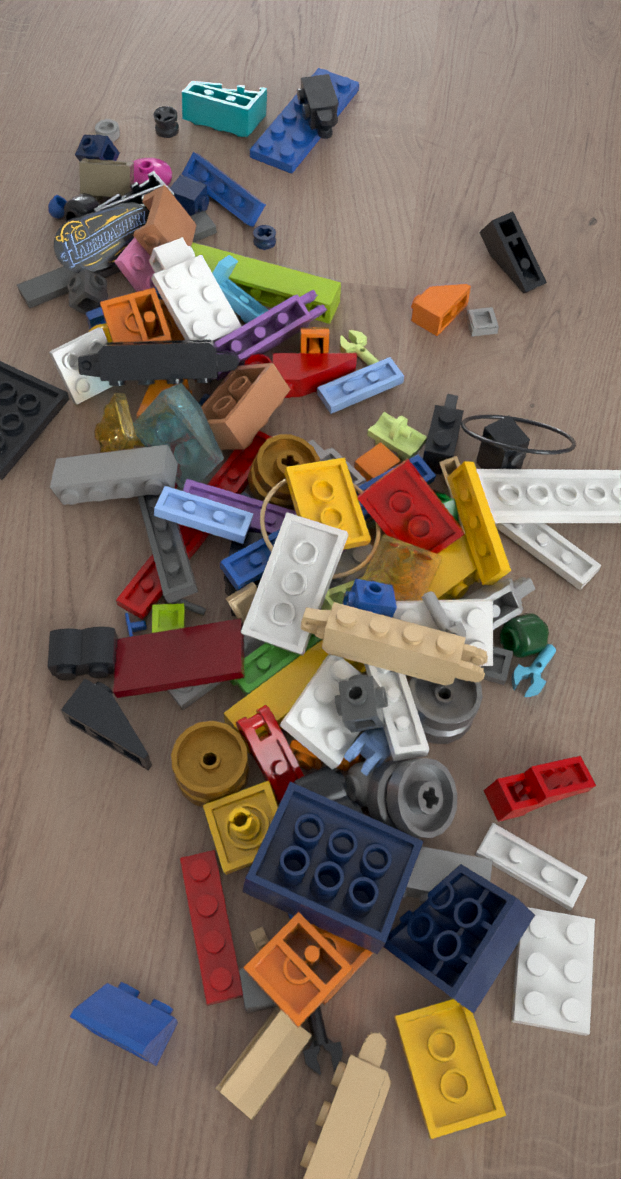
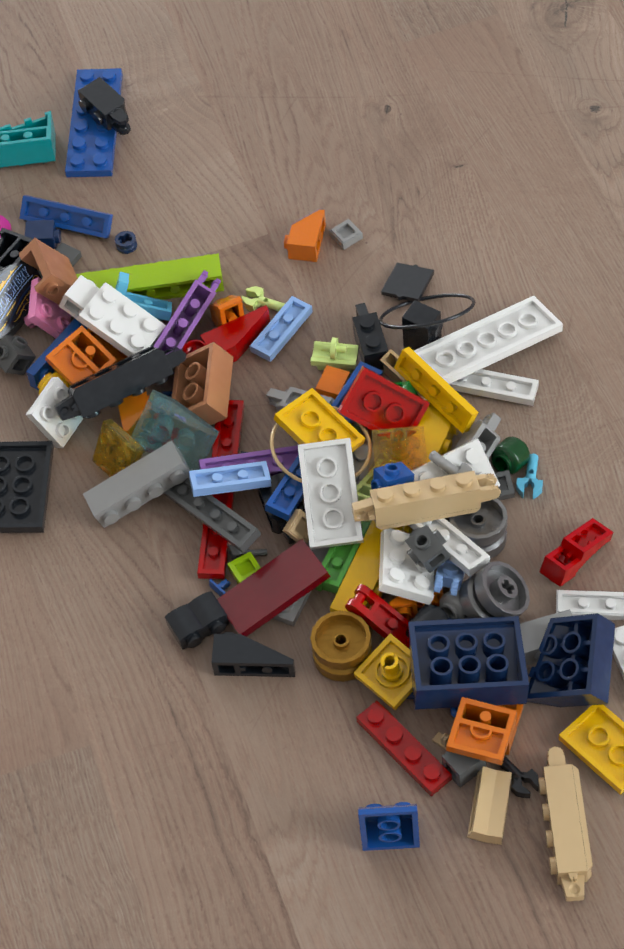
camera: 20 degrees left, 5 degrees down
(271, 463) = (257, 420): pearl gold wheel -> none
(512, 252) = (340, 166): black slope -> none
(517, 396) = (407, 282): none -> black piece

